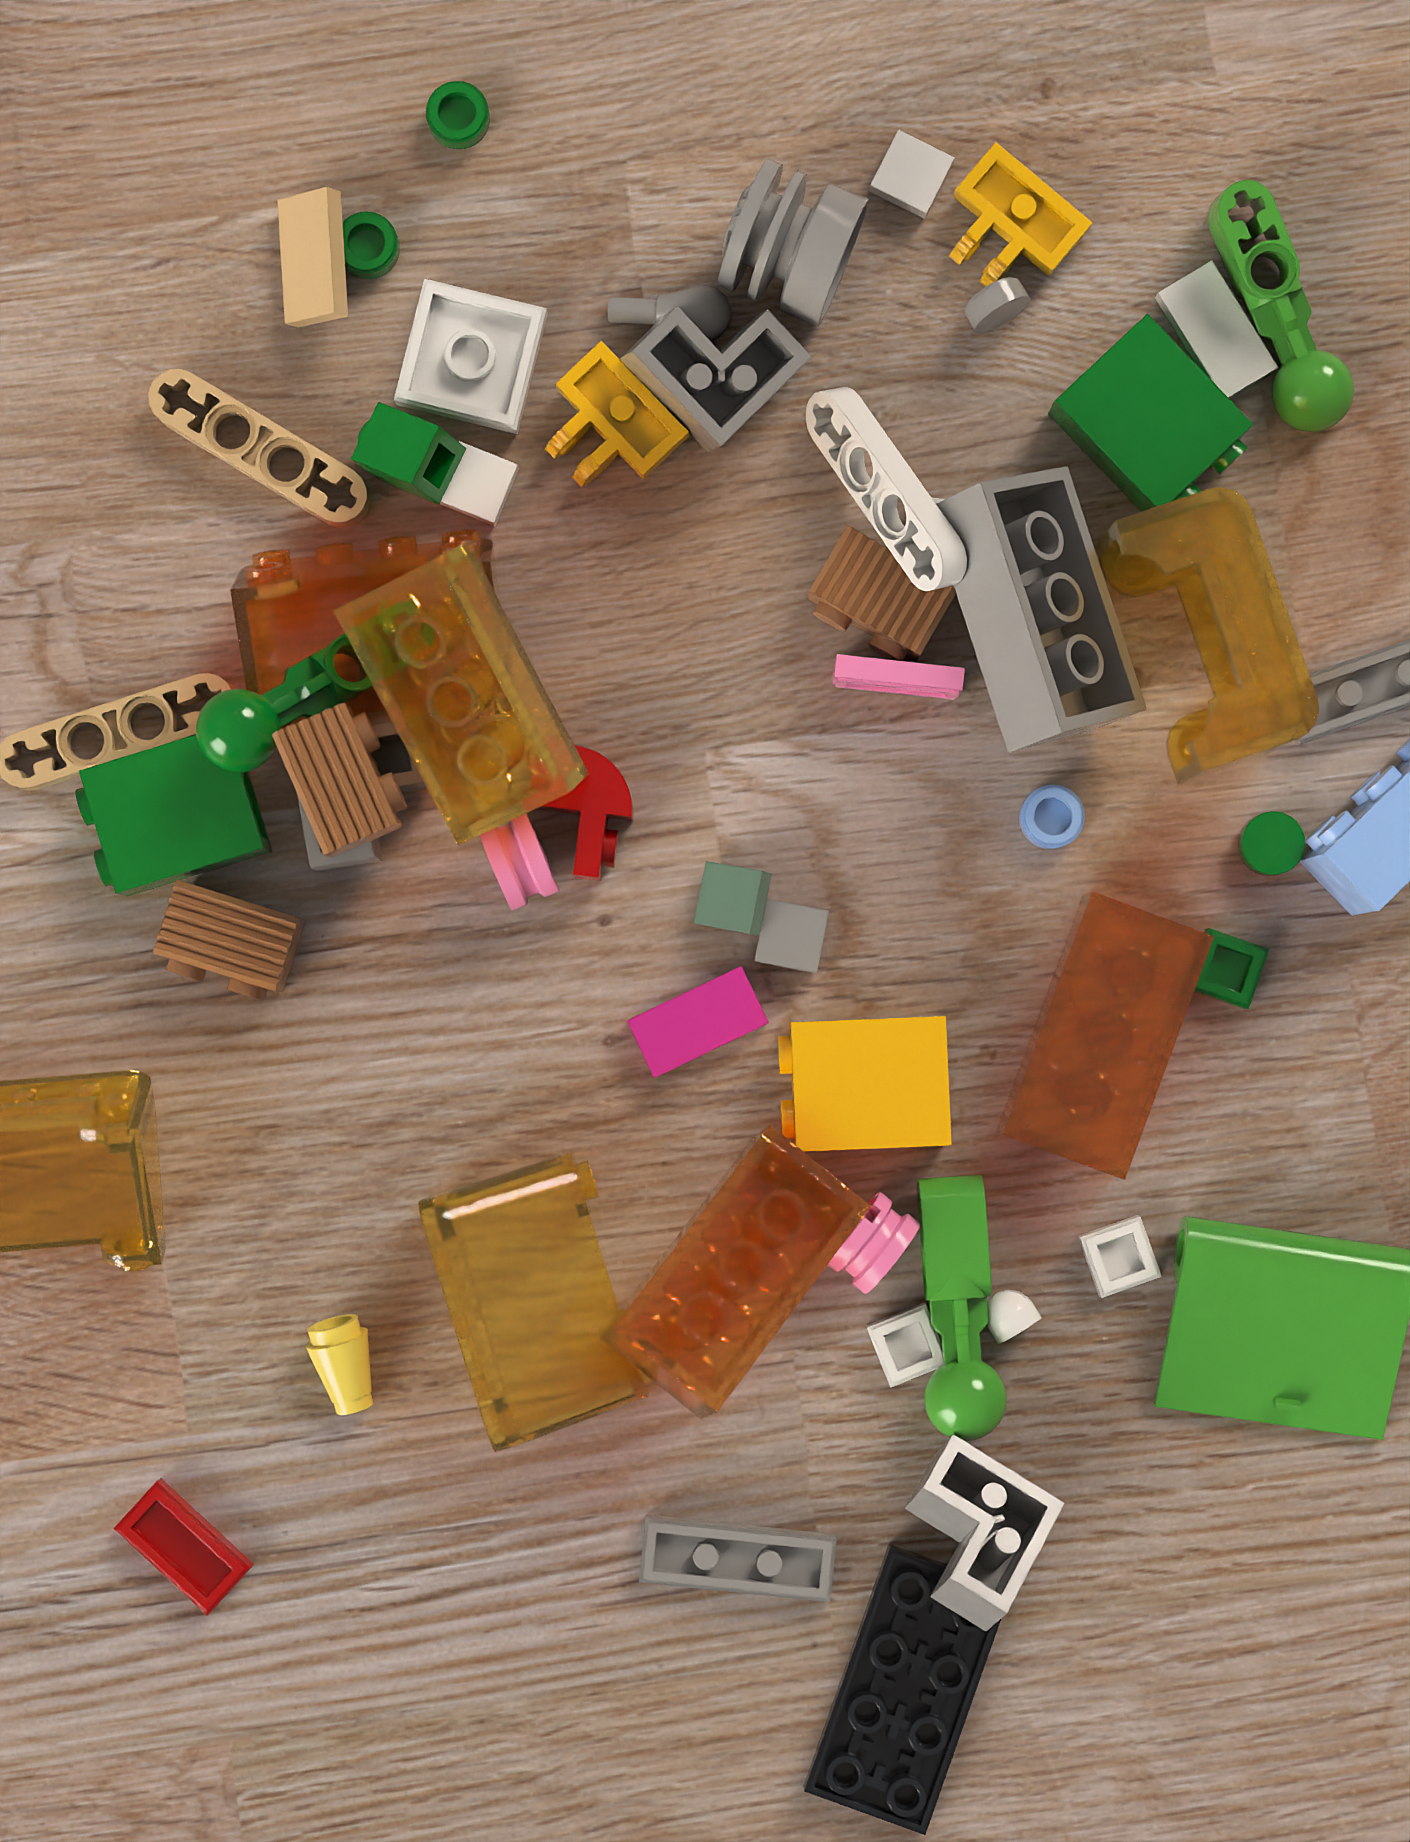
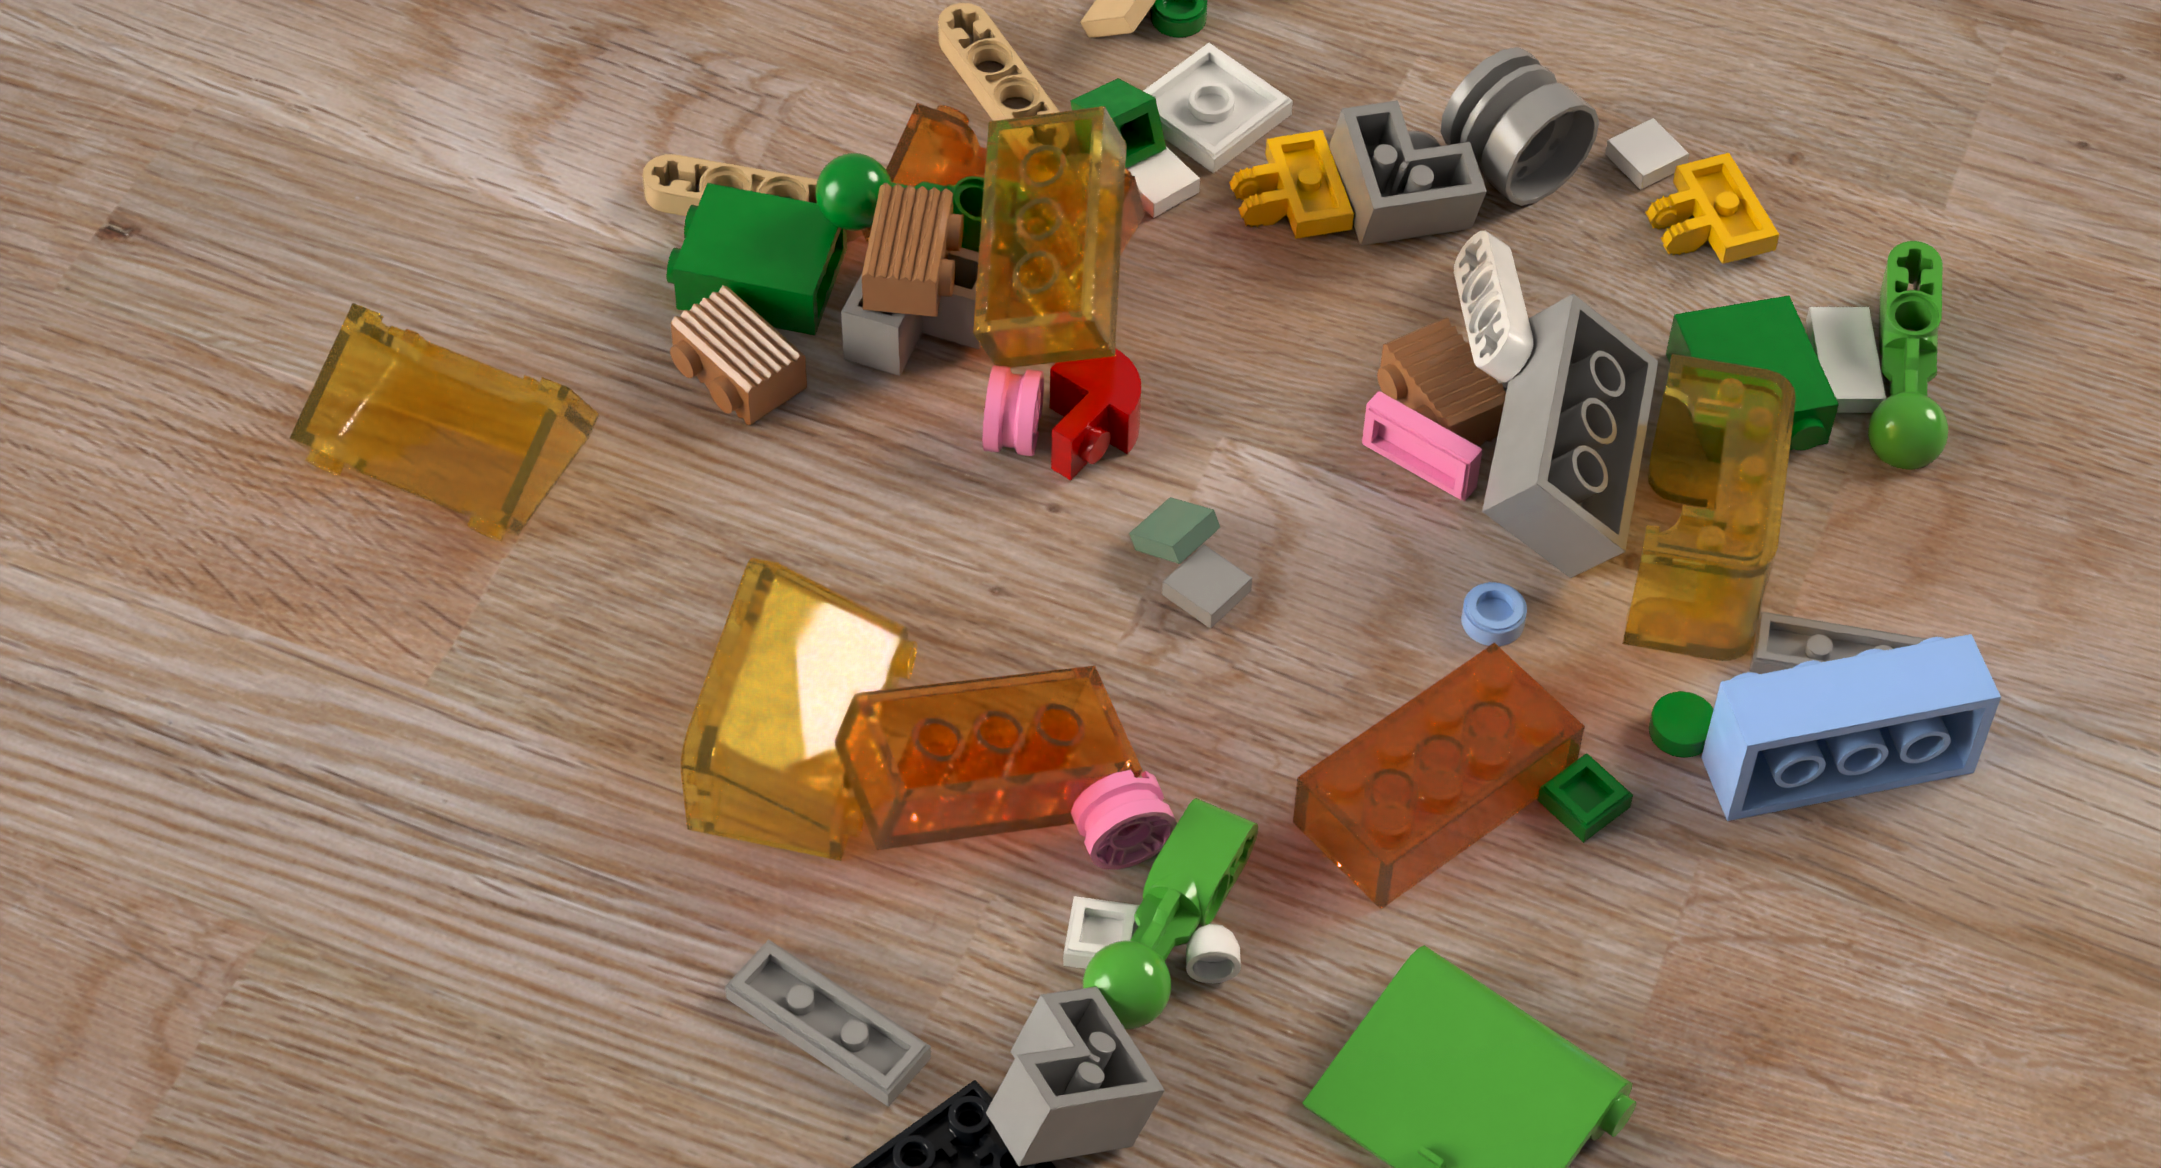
camera: 25 degrees right, 35 degrees down
(183, 1546) = (352, 759): red tile -> none
(342, 1361) = (596, 686): light yellow cone -> none
(697, 1021) = (1083, 606): dark pink tile -> none
(866, 1083) = (1205, 709): yellow brick -> none
(996, 304) = (1665, 253): light grey tile -> none
(1119, 1256) = (1345, 966): white tile -> none

